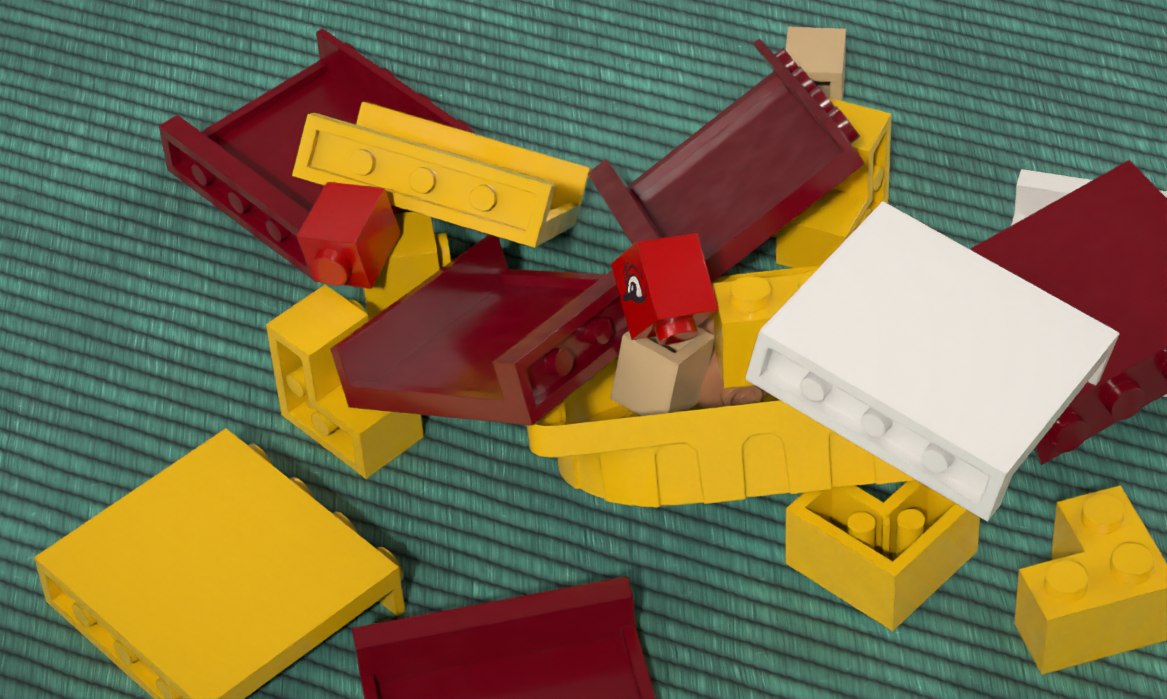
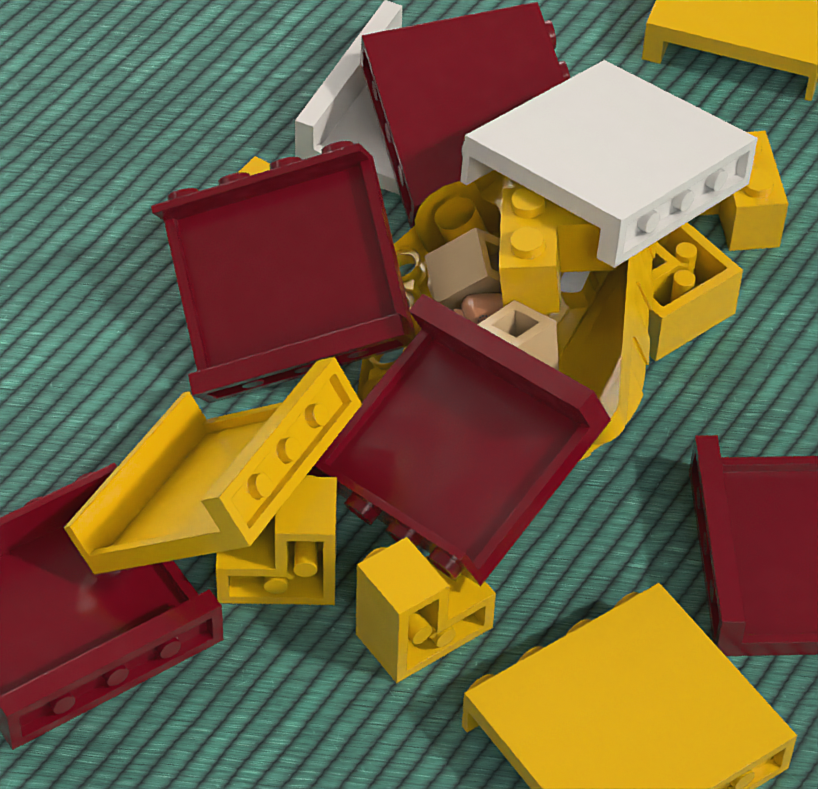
camera: 85 degrees left, 5 degrees up
(349, 235) = (329, 522): red brick -> none
(664, 288) = (503, 294): red brick -> none
(821, 56) = (93, 230): tan brick -> none

